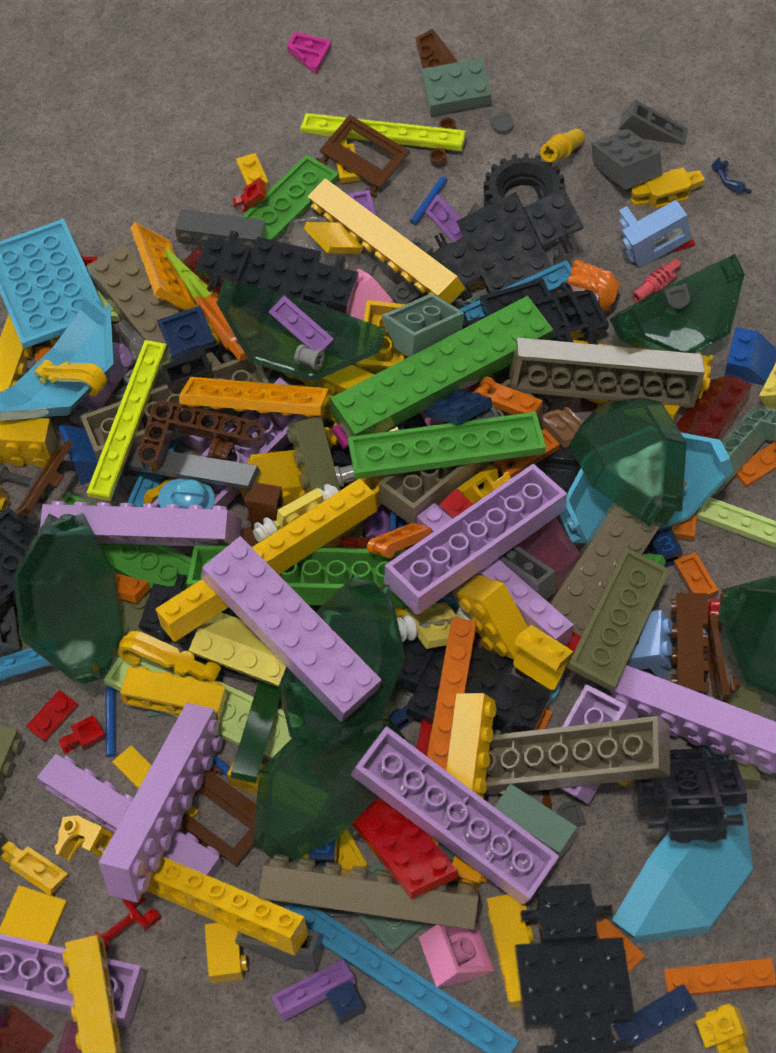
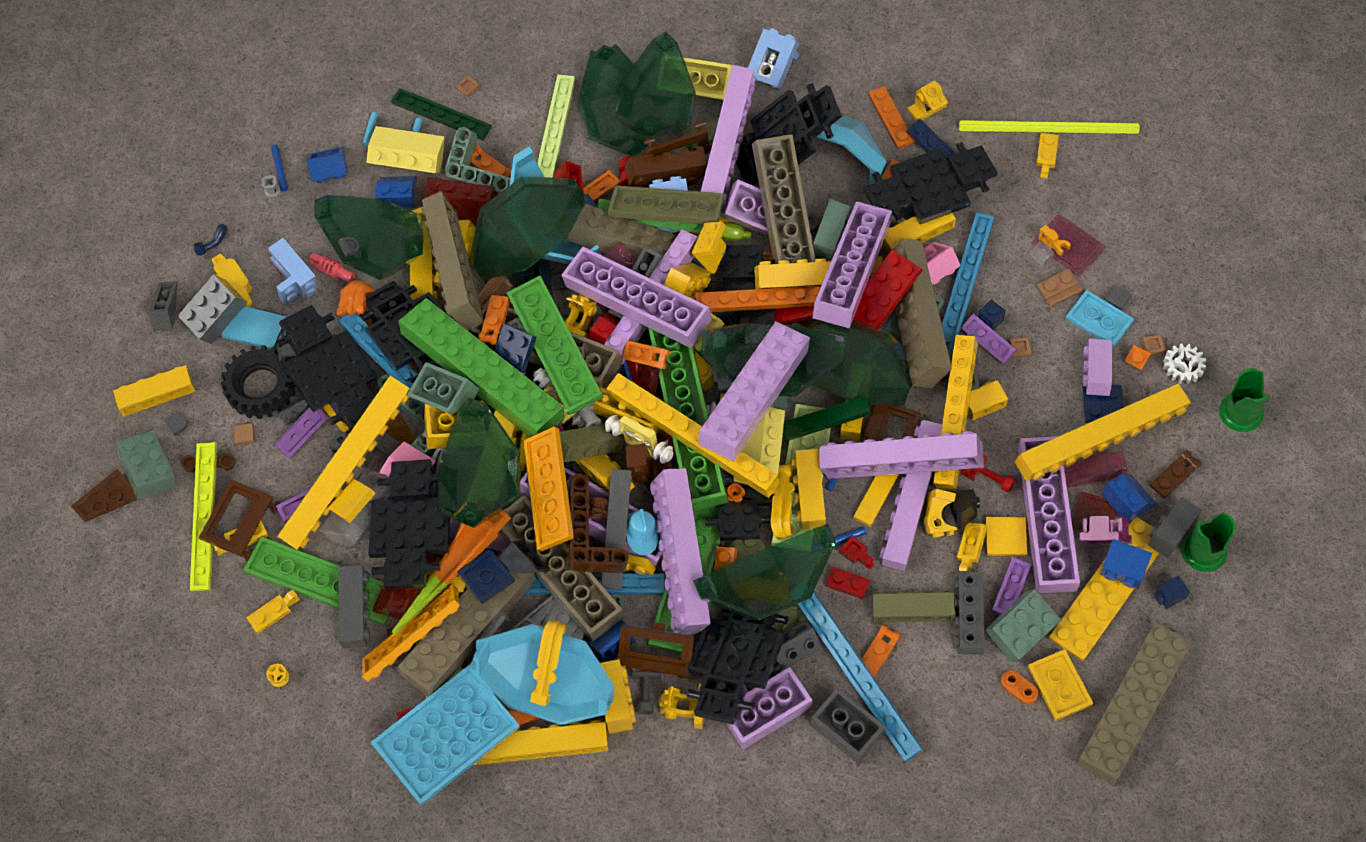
camera: 105 degrees left, 5 degrees up
(80, 870) = (964, 507): none -> black slope
(127, 421) = (585, 592): neon yellow tile -> none
(178, 165) = (276, 671): none -> yellow wheel
(253, 194) = (303, 595): red plate -> none
(290, 1032) = (1022, 346): none -> medium nougat tile
(301, 325) = (466, 478): medium lavender plate -> none
(309, 50) = (109, 610): dark pink wing -> none
(310, 357) = (496, 462): light grey bush -> none
(427, 201) = (275, 459): blue bar -> none
(468, 177) = (244, 434): none -> medium nougat tile
(546, 104) = (154, 390): none -> yellow brick
(562, 145) = (205, 360): yellow piece -> none
(601, 203) = (254, 328): none -> medium azure tile
(707, 537) = (570, 170): none -> red slope

